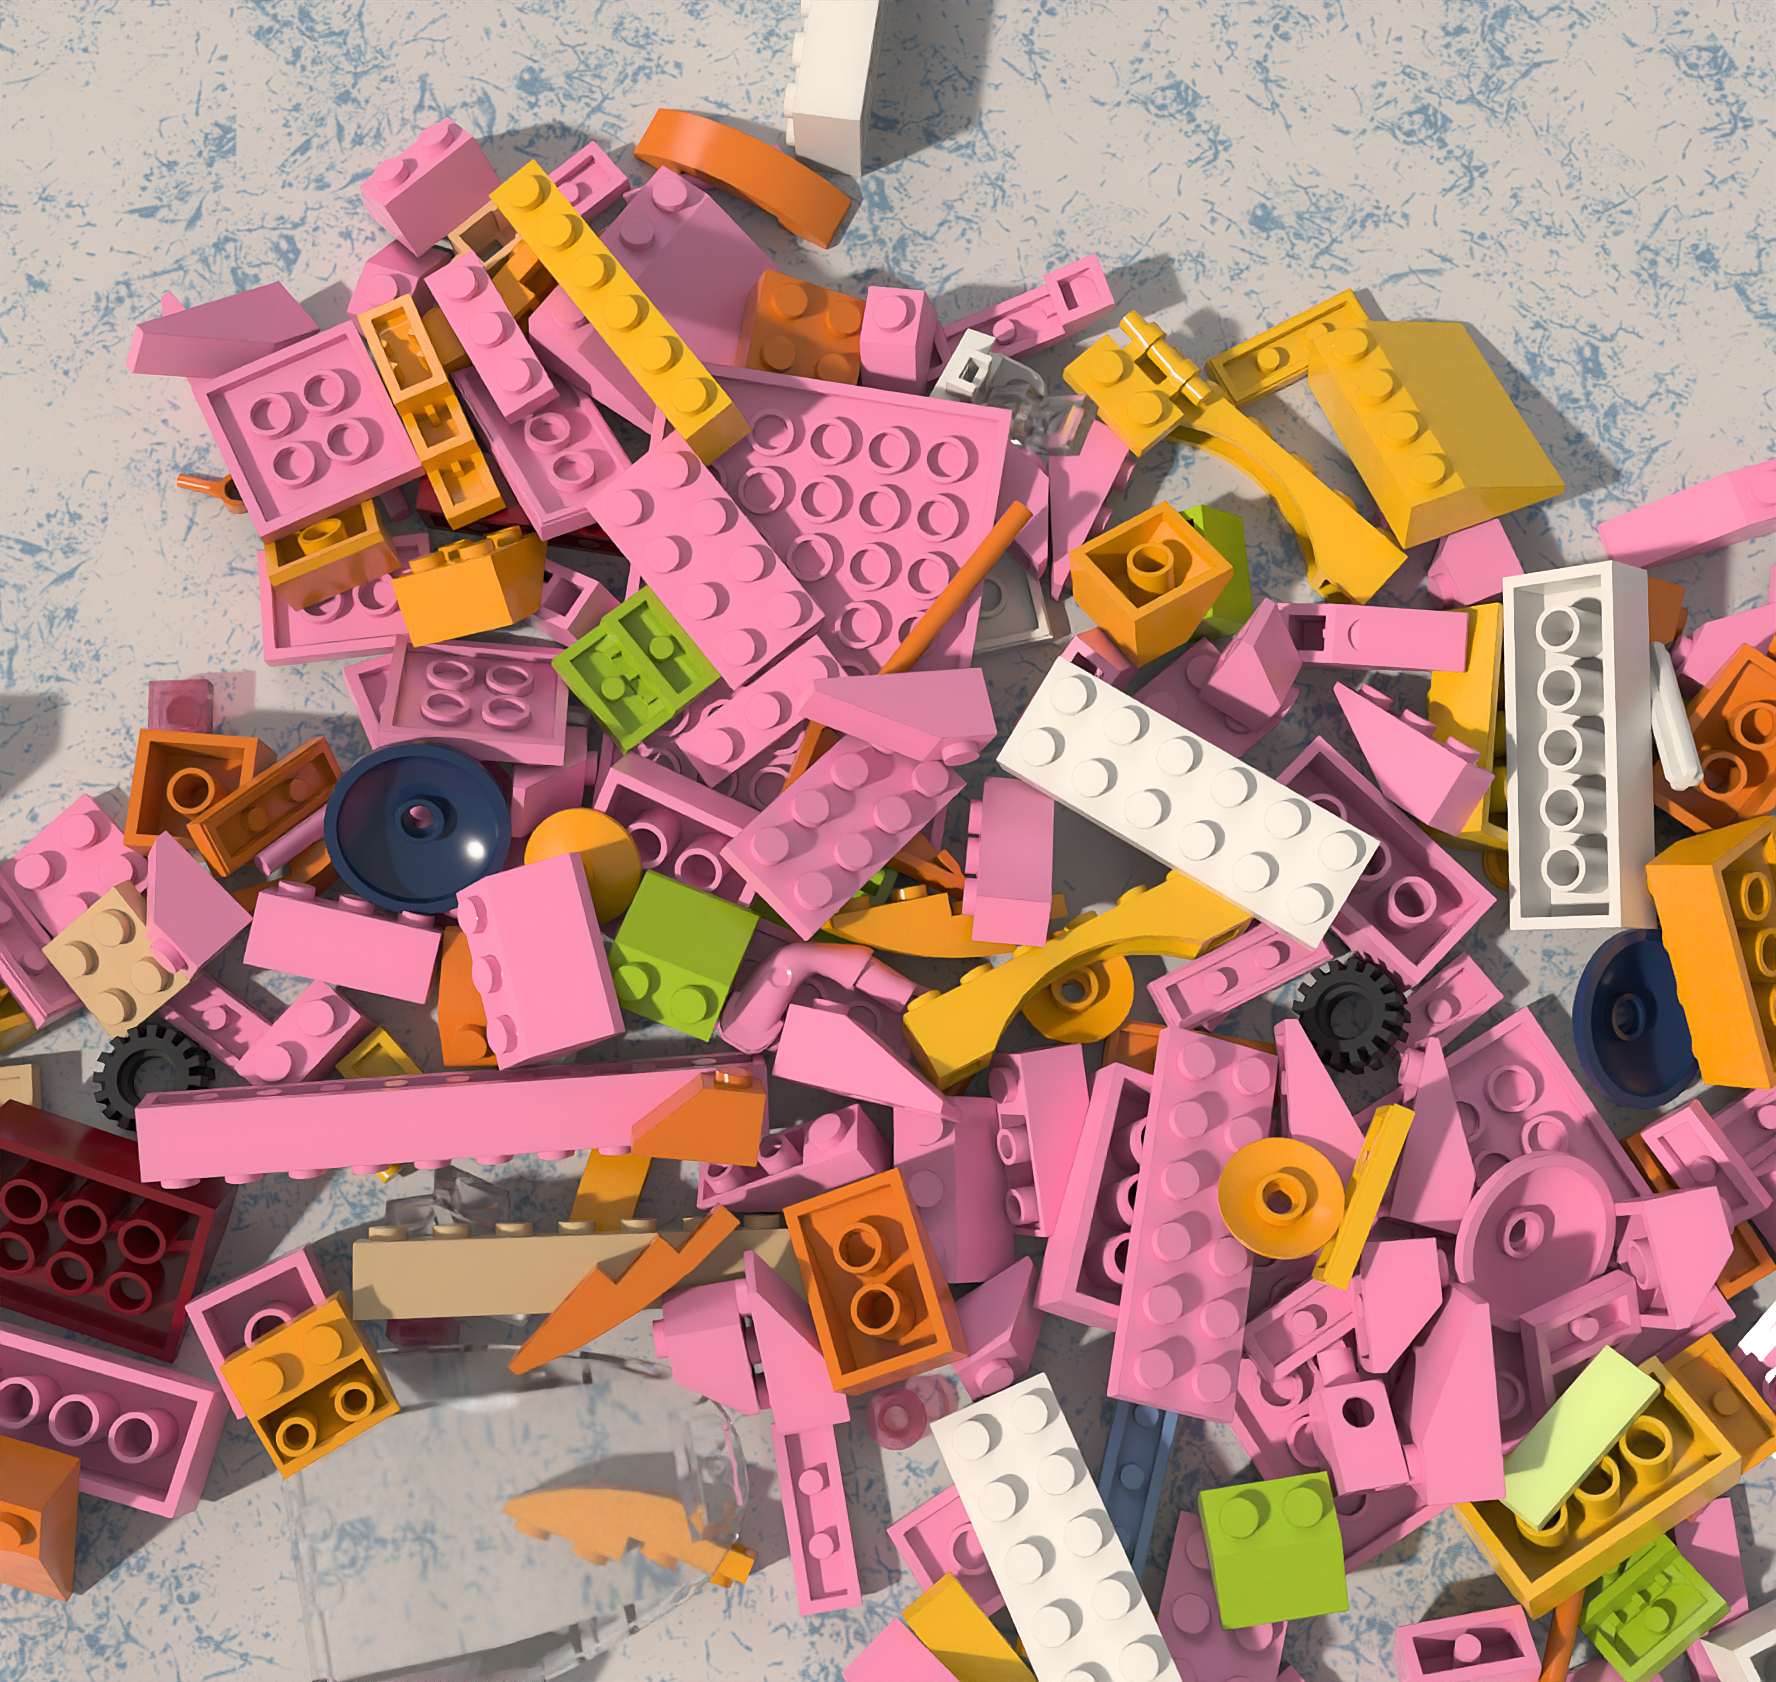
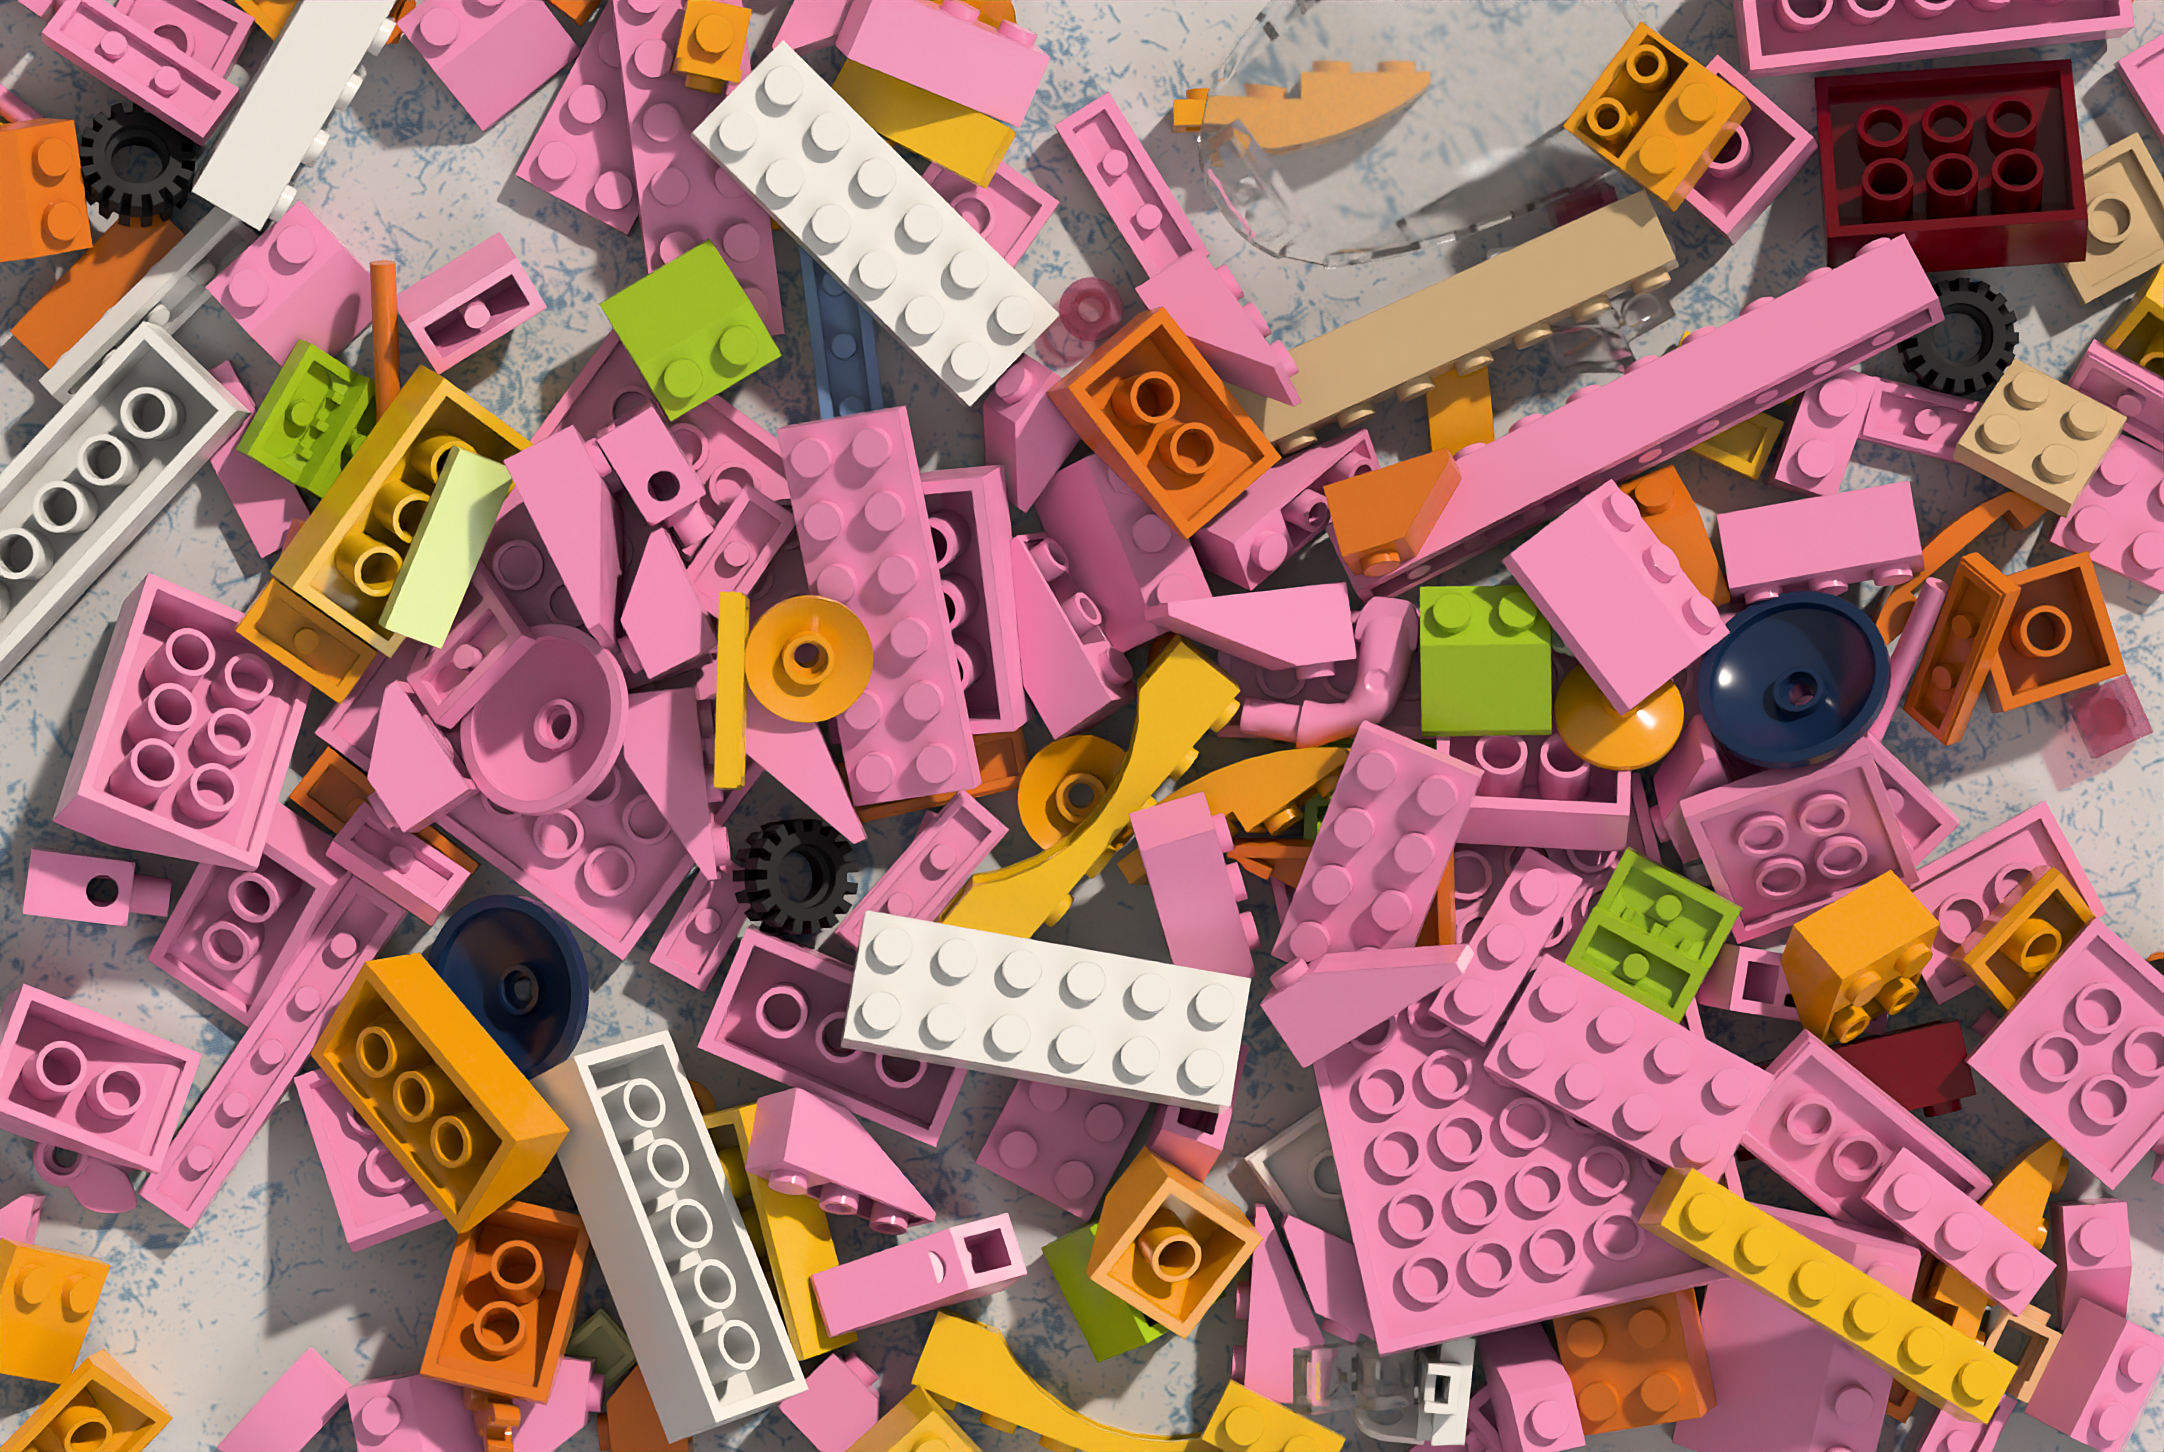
camera: 155 degrees right, 10 degrees up
(187, 910) = (1988, 509): bright pink slope -> none
(431, 411) = (1986, 1126): light orange slope -> none
(605, 1302) = (1414, 299): orange slope -> none
(708, 1344) = (1299, 302): bright pink slope -> none
(958, 589) = (1362, 1136): orange bar -> none
(1256, 671) = (1023, 1188): bright pink slope -> none
(1671, 723) = (593, 1302): white axle -> none

